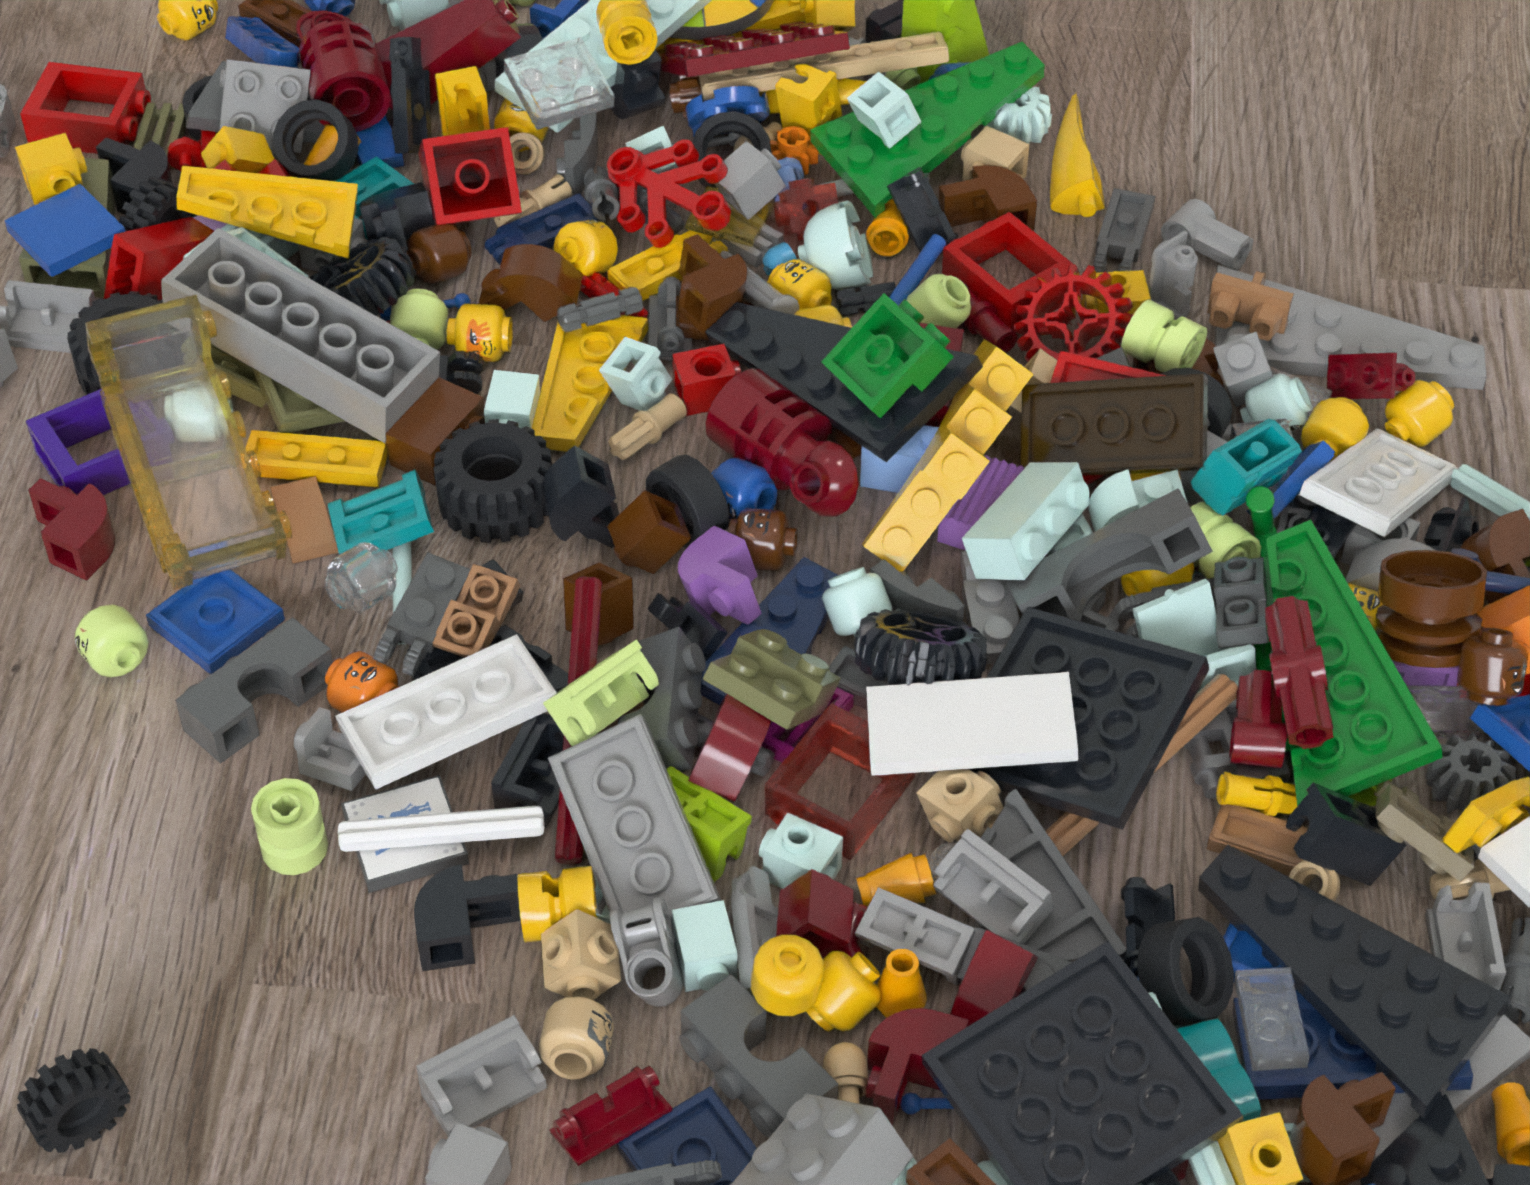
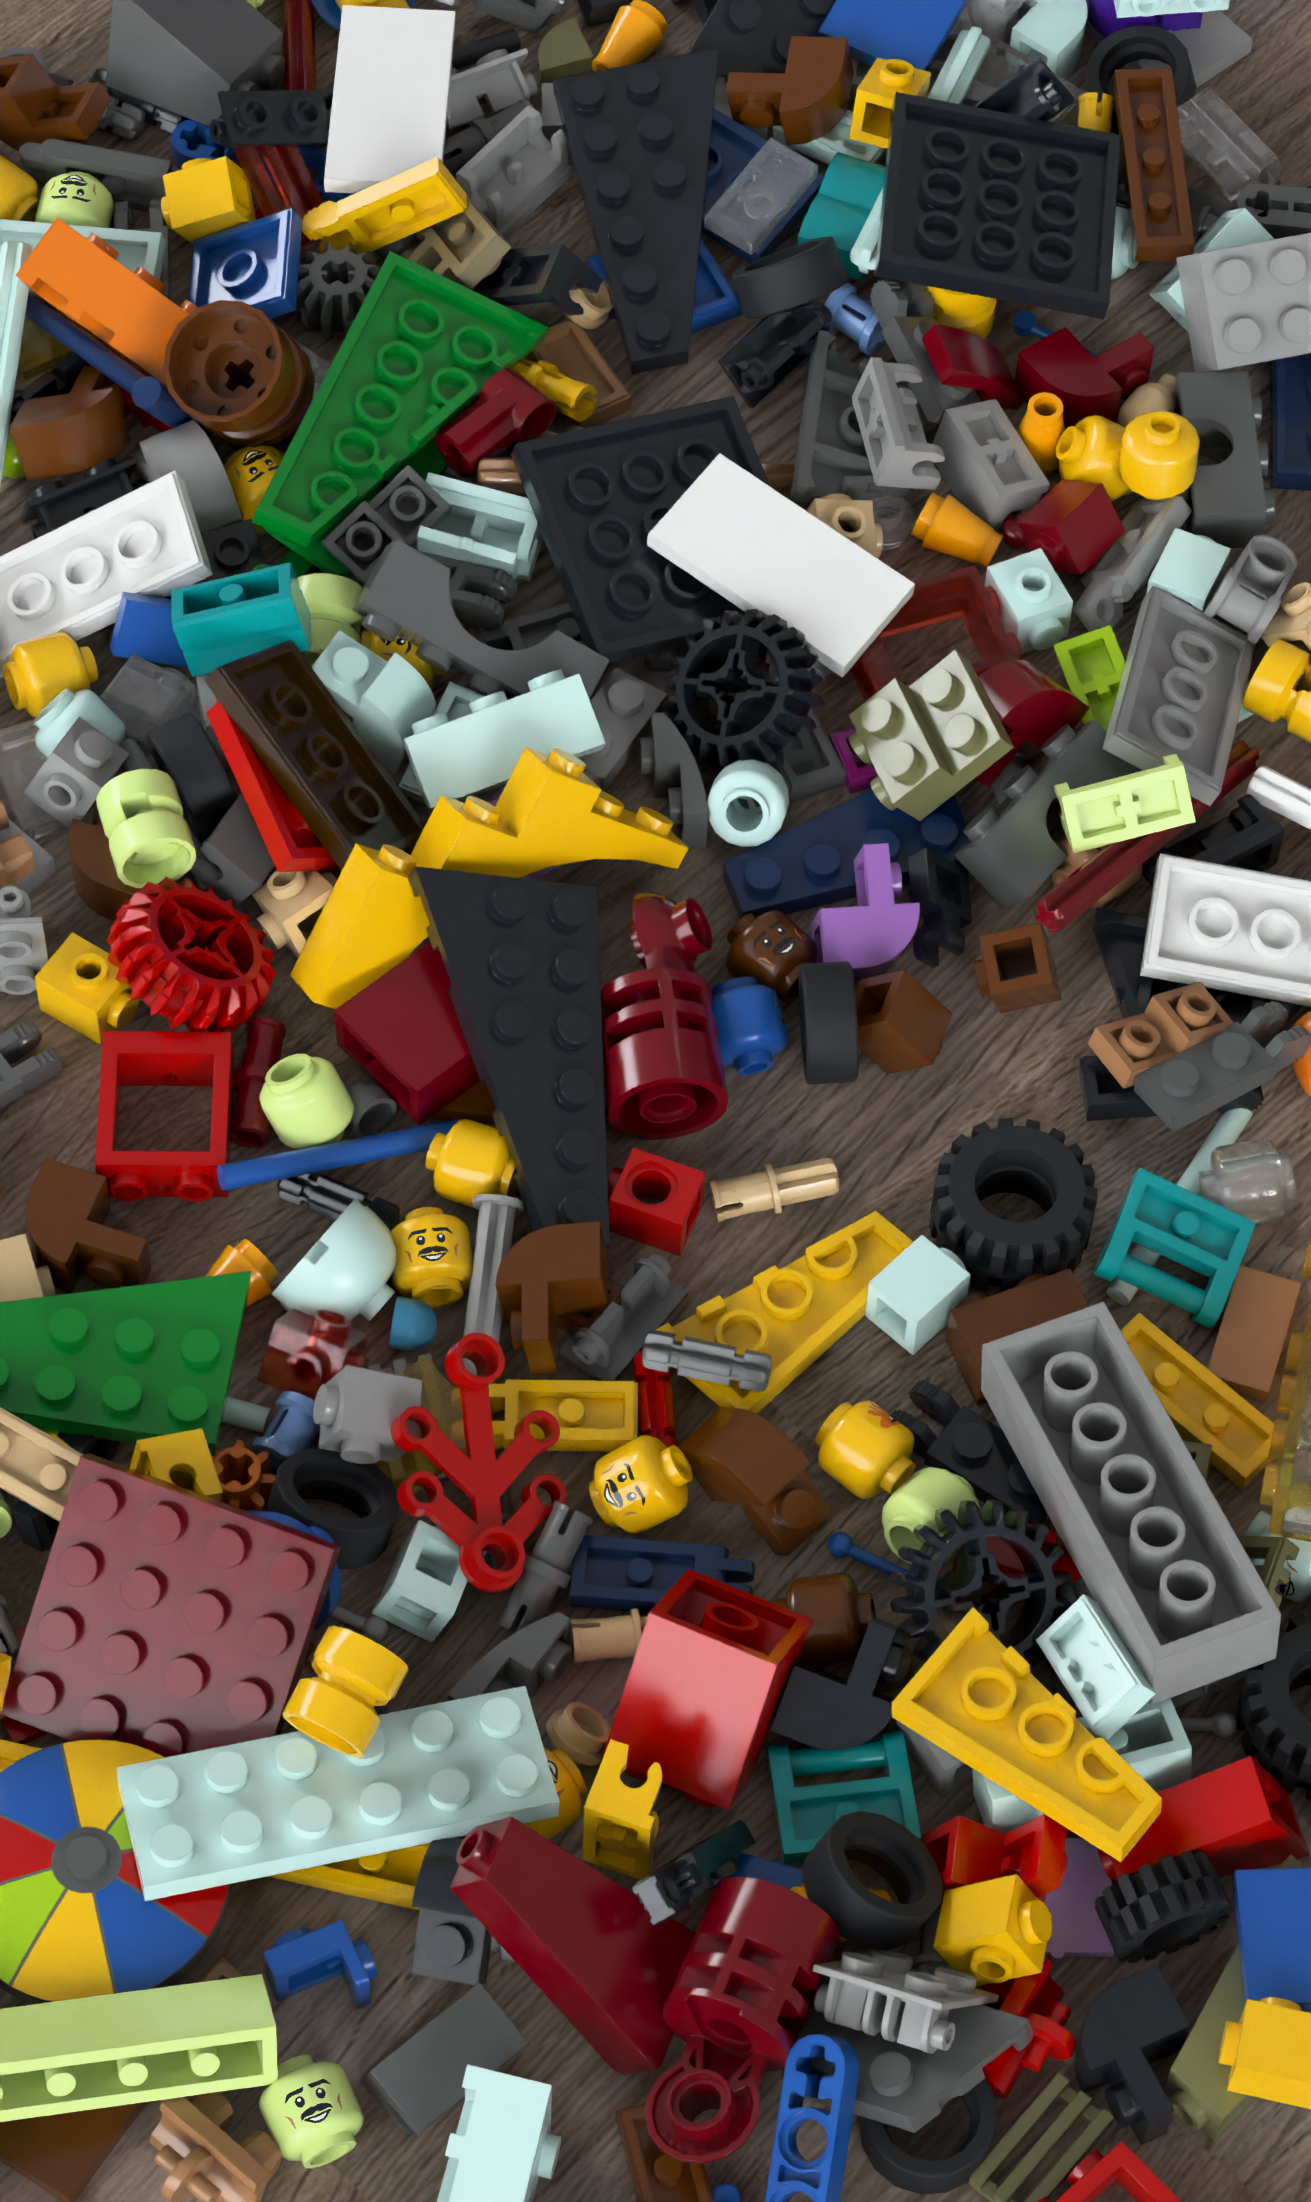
camera: 145 degrees left, 10 degrees up
(559, 83) = (497, 1694): clear plate -> none
(580, 496) = (947, 1083): black brick -> none
(644, 383) = (741, 1234): light aqua brick -> none
(884, 109) = (146, 1331): light aqua brick -> none
(888, 354) = (512, 927): green plate -> none
(920, 208) = (189, 1245): black hinge -> none
(1298, 672) = (439, 388): dark red piece -> none
(1492, 667) = (247, 283): reddish brown head -> none

